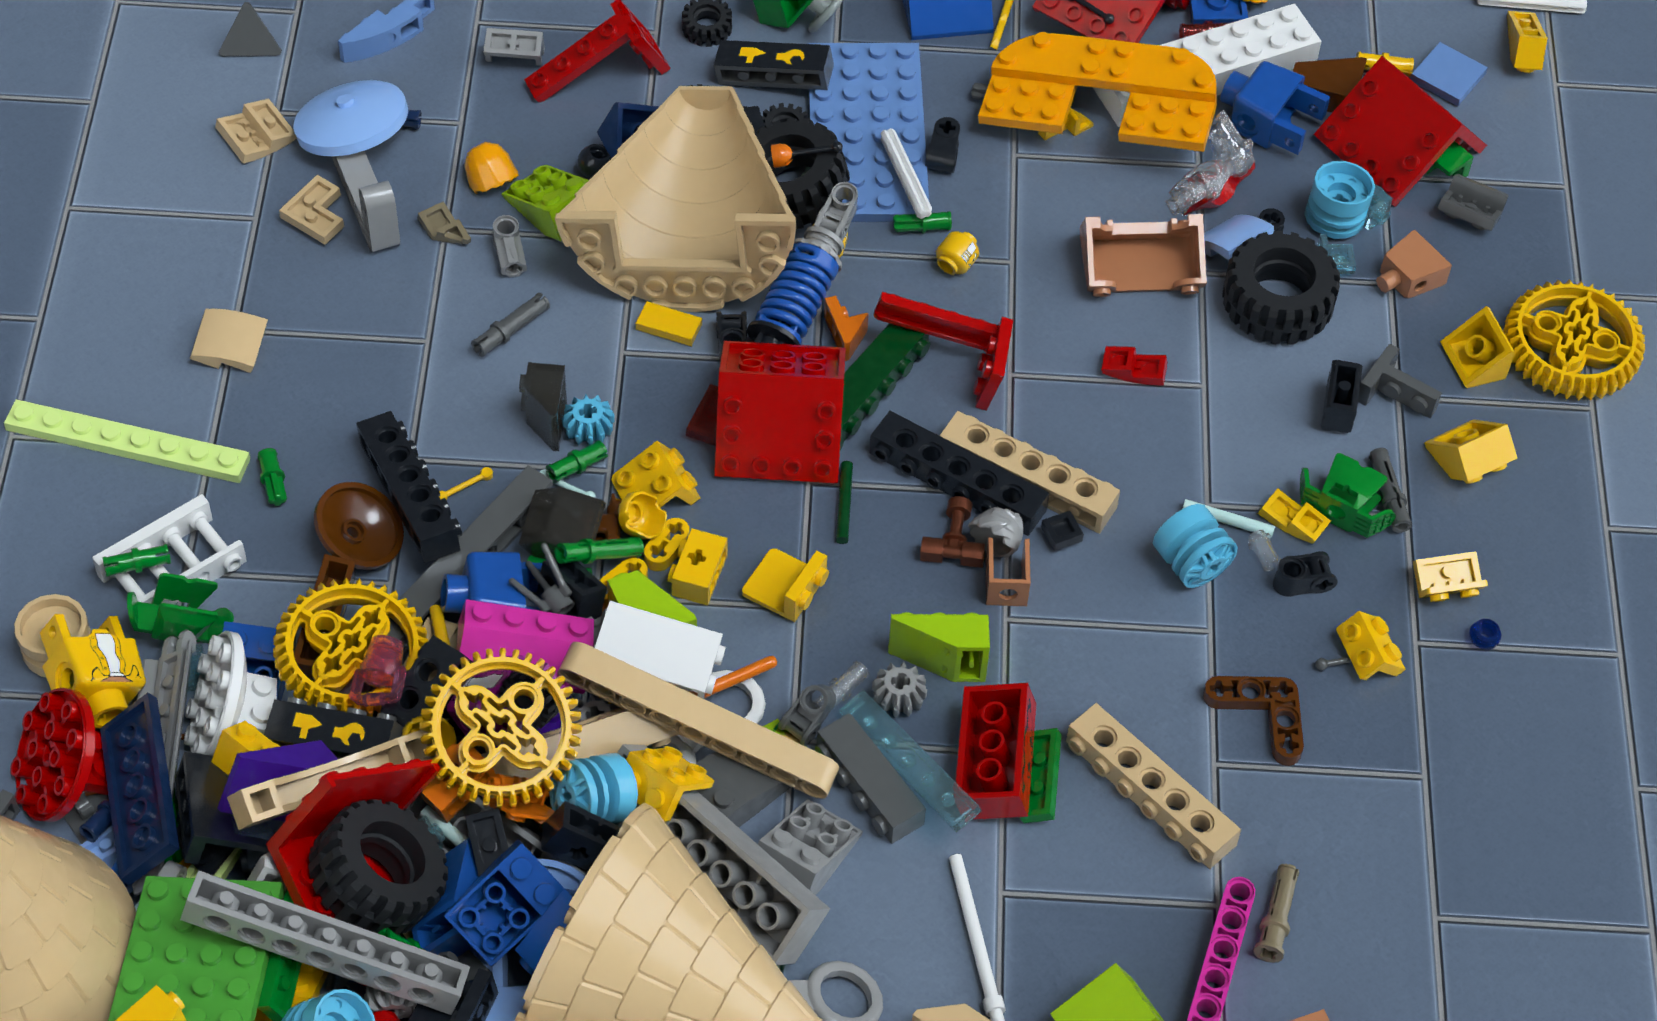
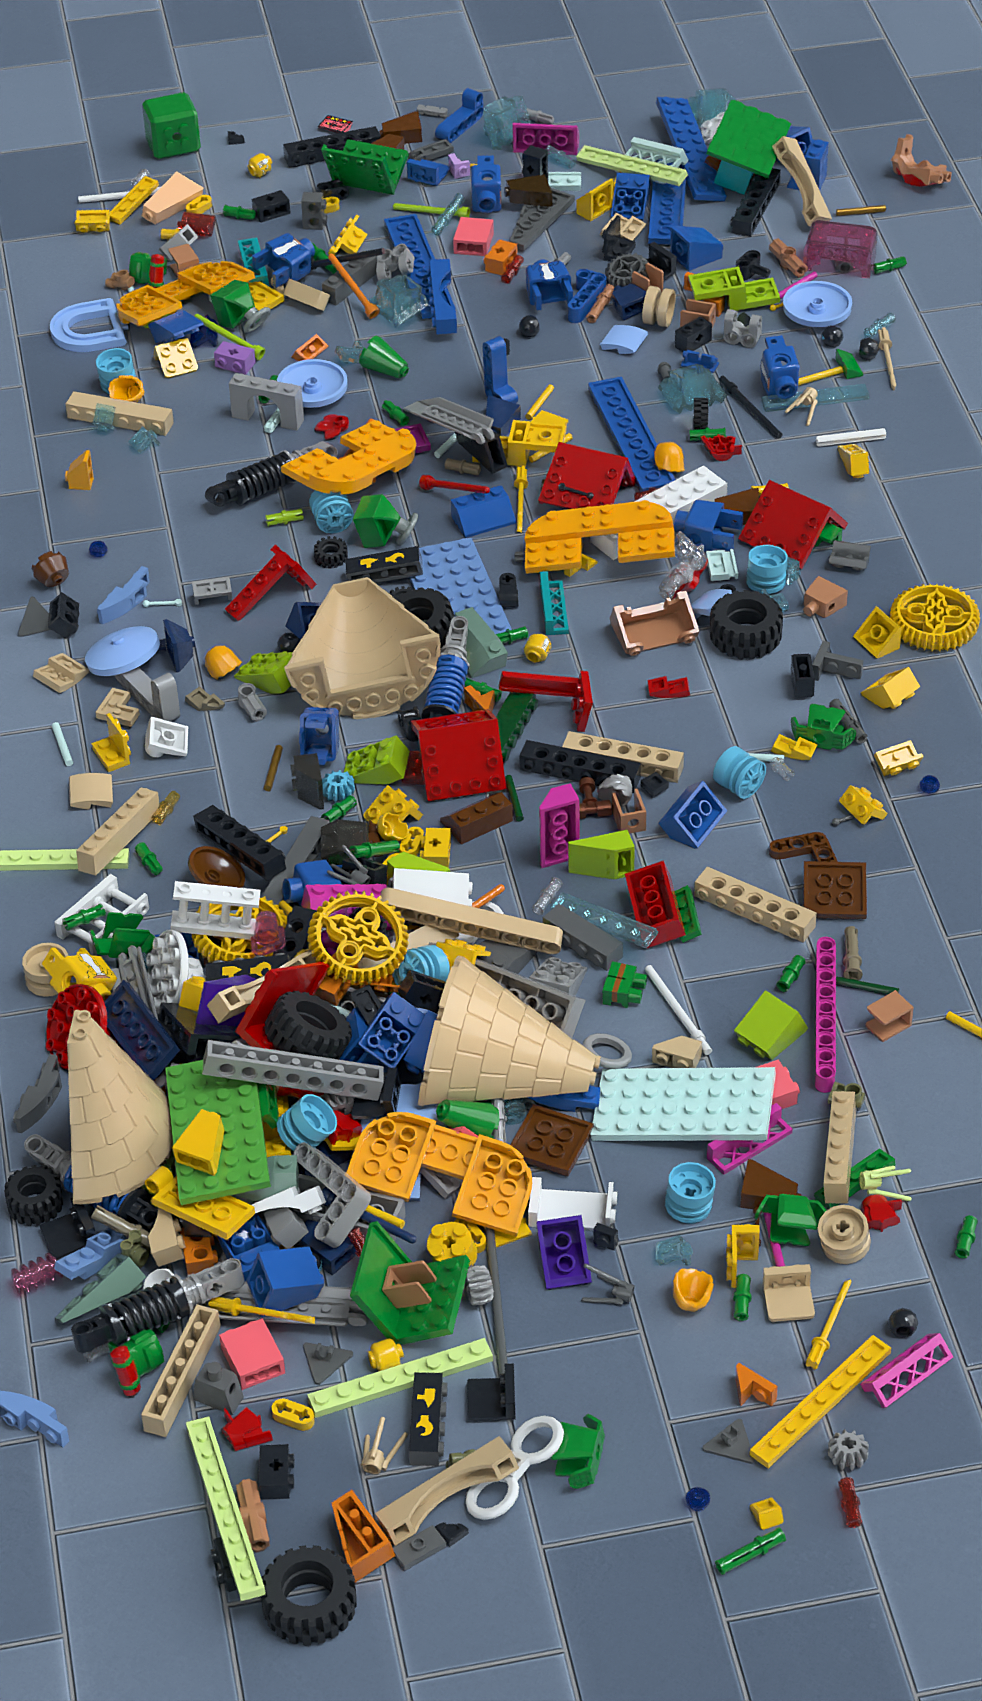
camera: 10 degrees left, 10 degrees down
(216, 250) = (62, 744): none -> light aqua bar
(236, 424) = (117, 831): none -> tan brick
(281, 276) = (113, 750): none -> yellow bracket
(288, 39) = (63, 615): none -> black brick
(306, 617) = (211, 924): none -> white fence
(326, 394) = (165, 808): none -> clear yellow axle
(365, 278) = (166, 738): none -> white slope
(435, 125) = (178, 644): none -> dark blue slope
(462, 52) = (178, 602): none -> light aqua hinge
(501, 331) = (264, 750): dark grey pin -> none
(506, 364) = (273, 768): none -> pearl gold bar
(576, 327) = (314, 741): none -> blue piece
(659, 394) = (378, 762): none -> lime slope
(668, 323) = (368, 725): yellow tile -> none
(779, 523) = (479, 817): none -> reddish brown slope
(783, 155) = (414, 608): hinge -> none
(786, 583) = (494, 848): yellow bracket -> none
(804, 718) = (531, 910): dark grey piece -> none
(853, 302) = (483, 688): none -> green pin
(874, 234) = (483, 646): none -> sand green wedge
(883, 580) = (558, 824): none -> dark pink slope
(899, 689) = (585, 886): light grey gear -> none
(902, 879) = (621, 983): none -> green hips
(906, 173) = (490, 609): white axle -> none
(995, 179) = (549, 608): none -> teal fence
(1103, 602) = (693, 815): none -> blue slope
(1172, 925) = (791, 973): none -> green pin
(1275, 174) = (721, 565): none -> light aqua plate
(1284, 791) = (836, 889): none -> reddish brown plate
(1286, 978) = (865, 985): none -> dark green bar
(1304, 575) = (809, 775): black piece -> none
(1448, 74) = (813, 486): medium blue tile -> none

